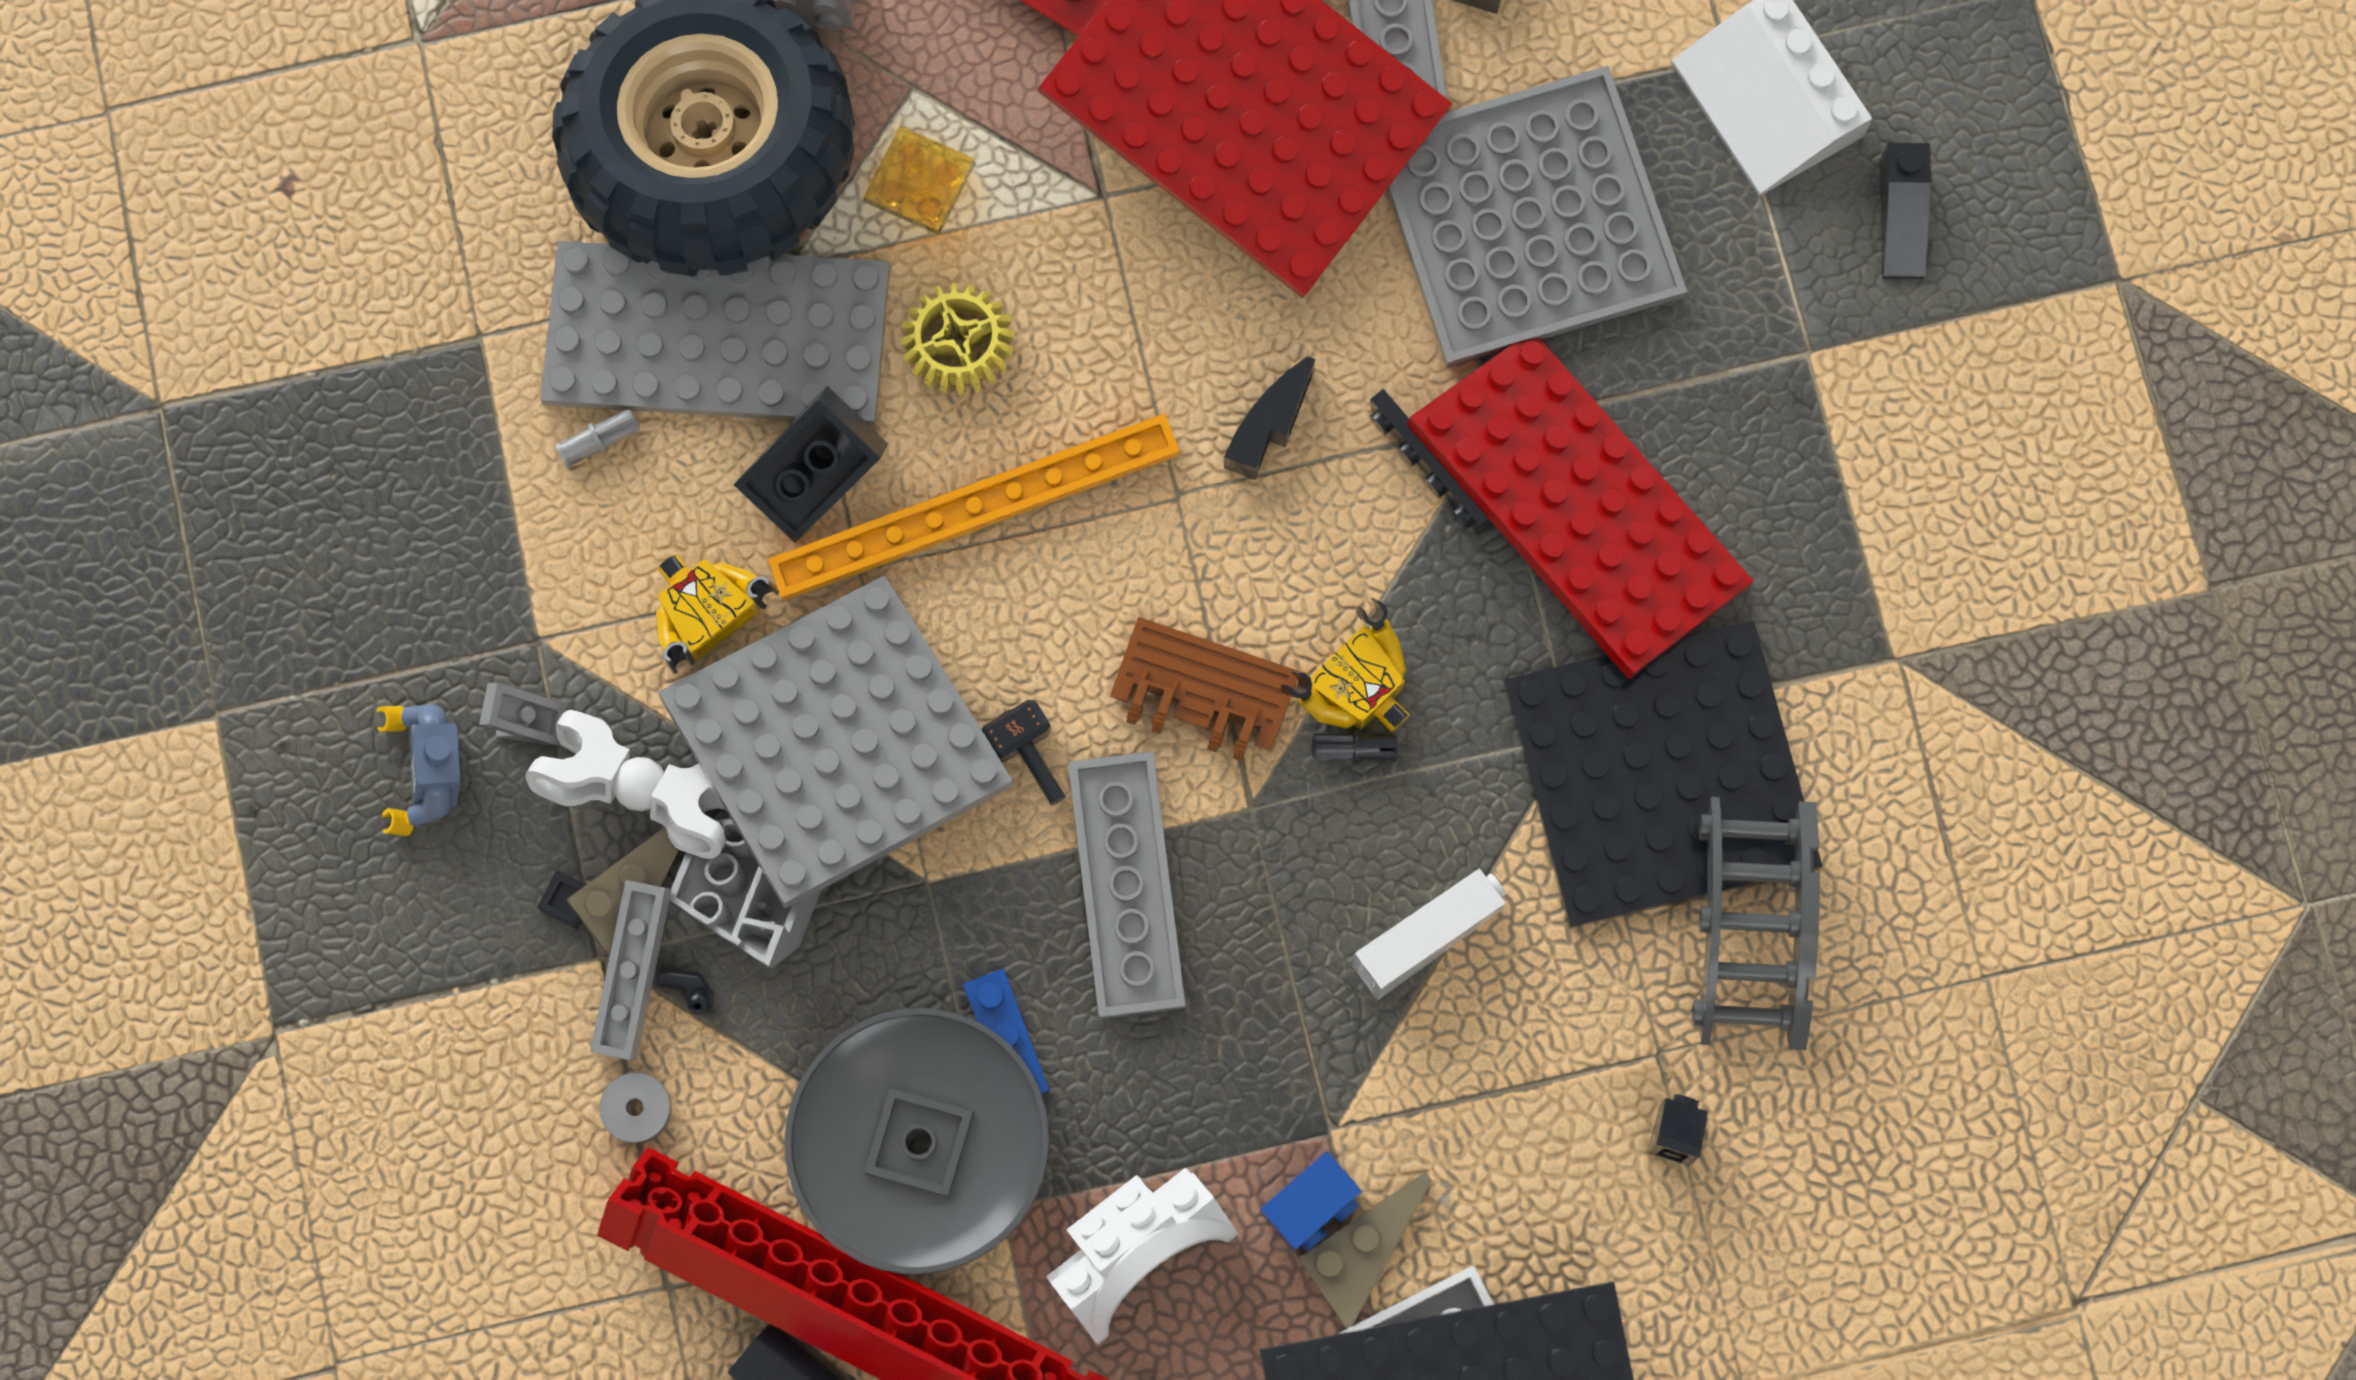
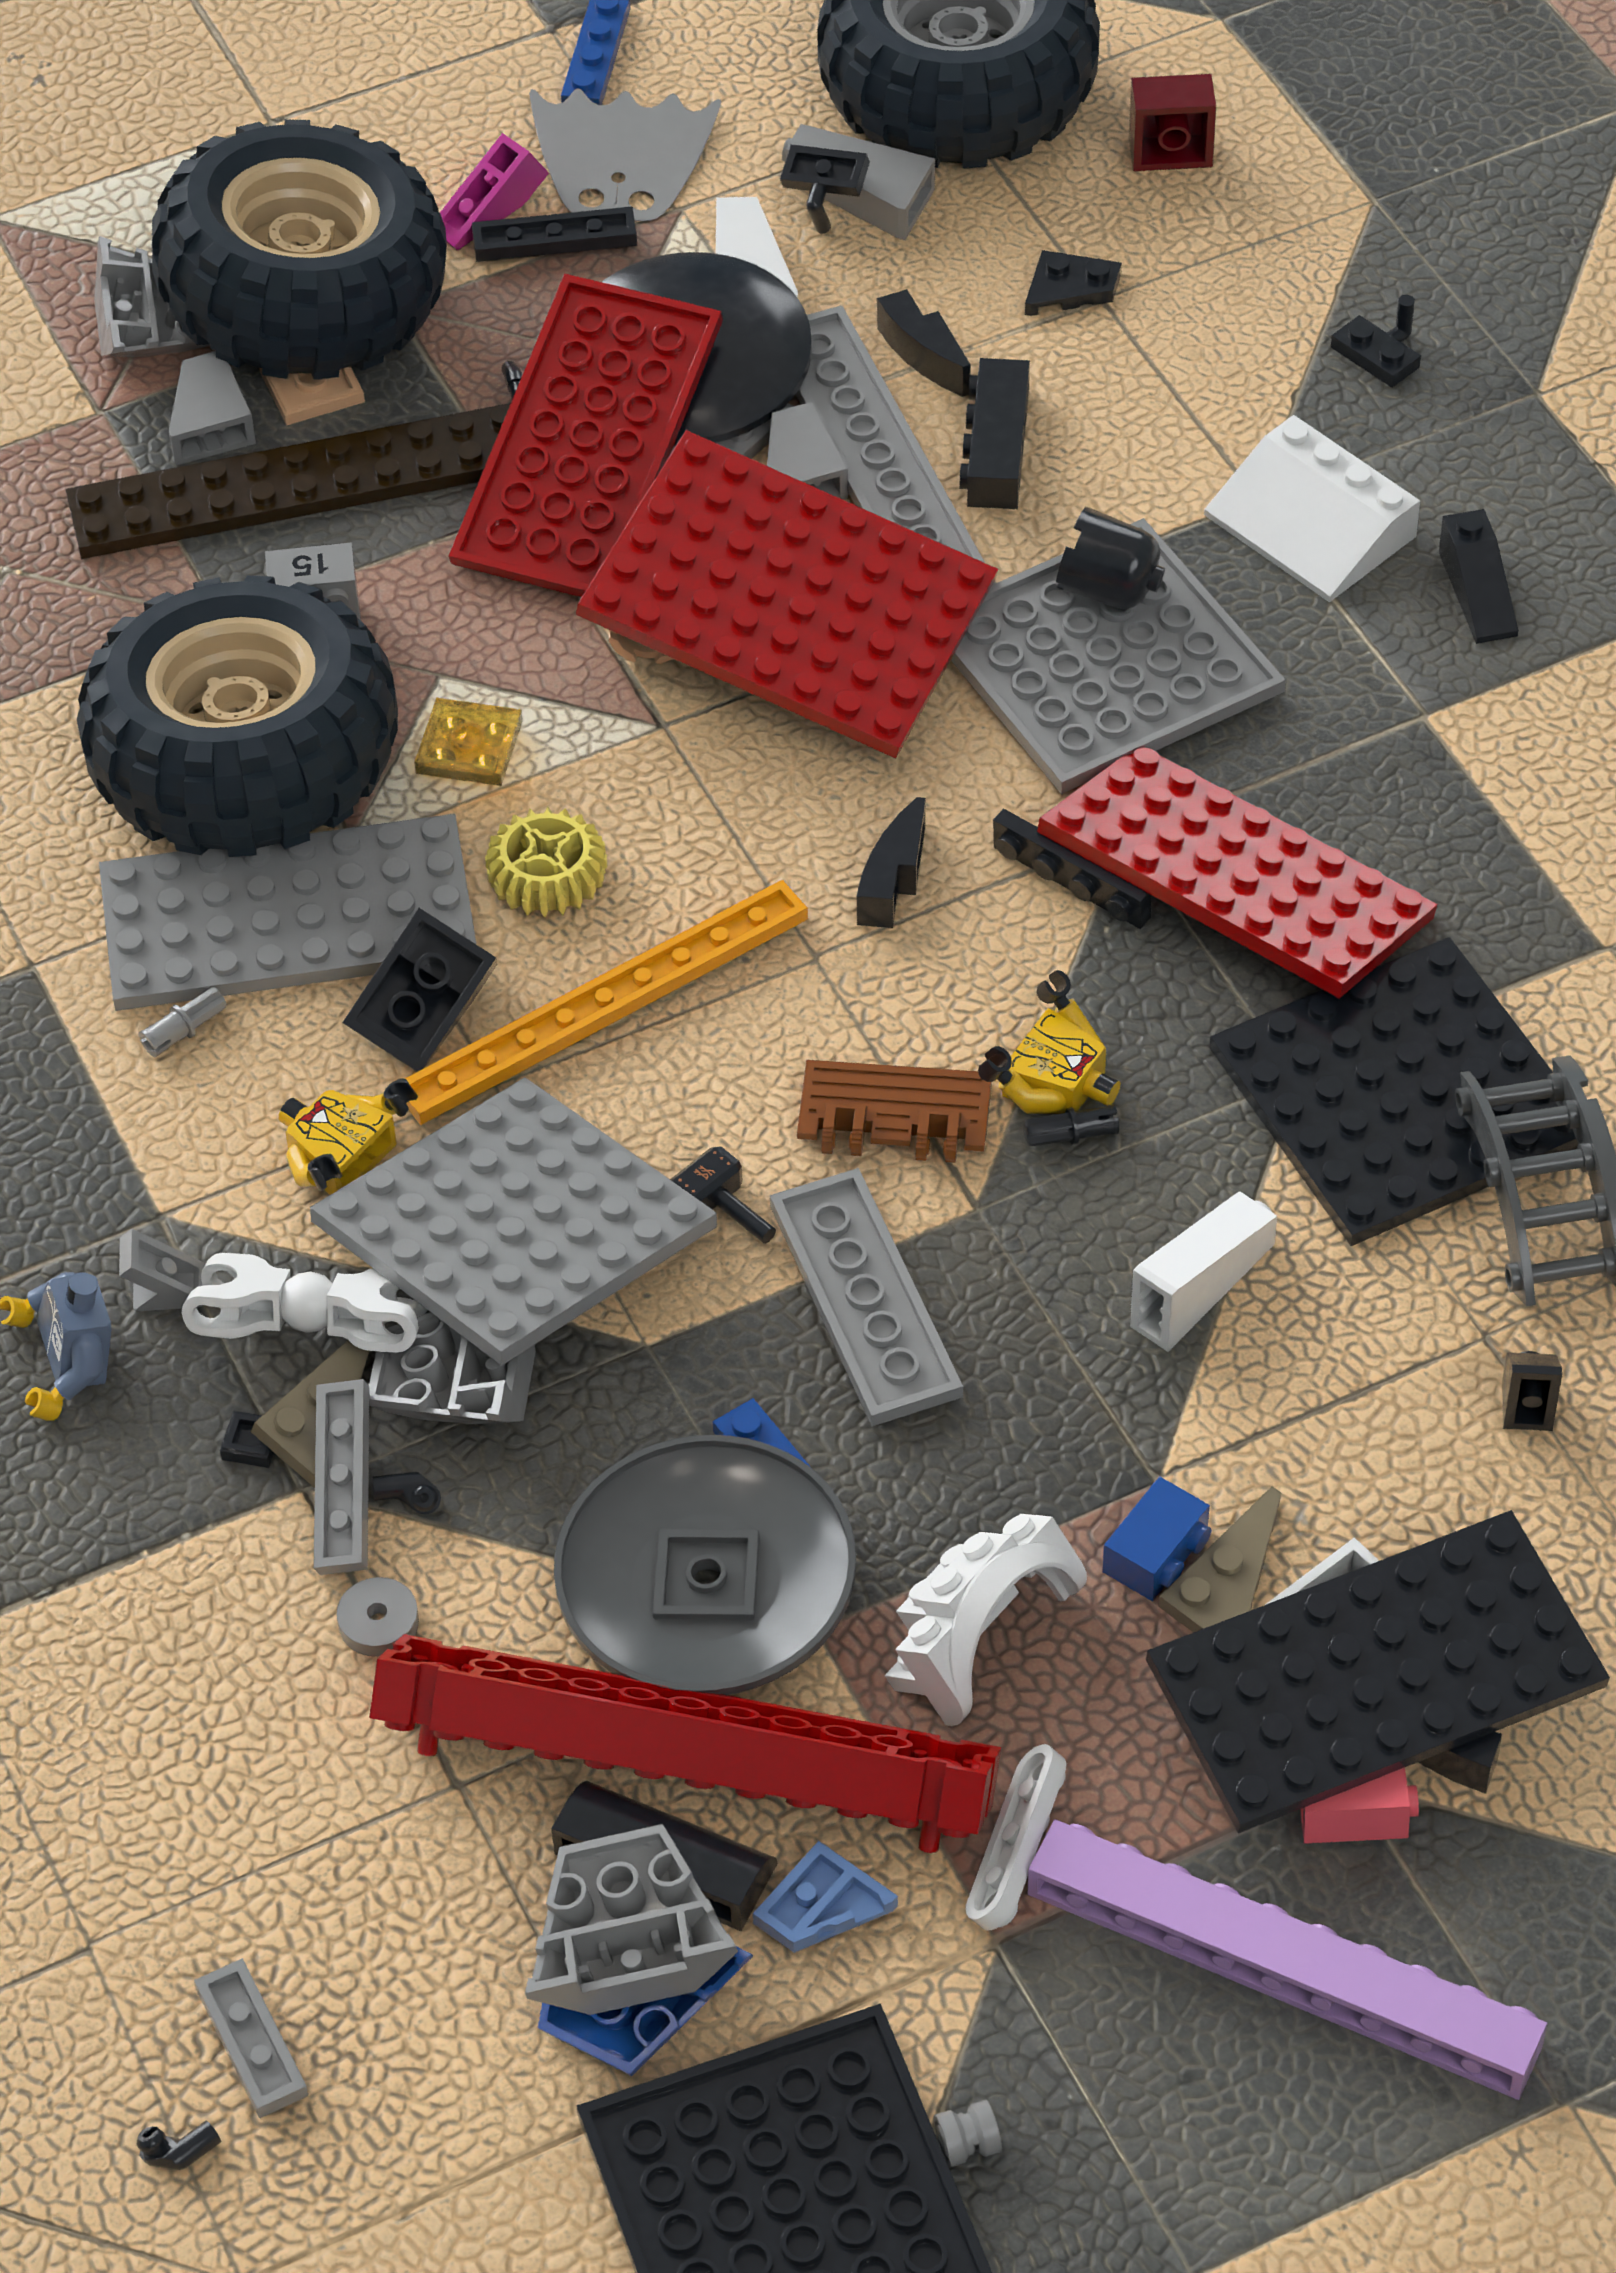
camera: 15 degrees left, 25 degrees down
(1558, 132) = (1110, 561): none -> black cylinder

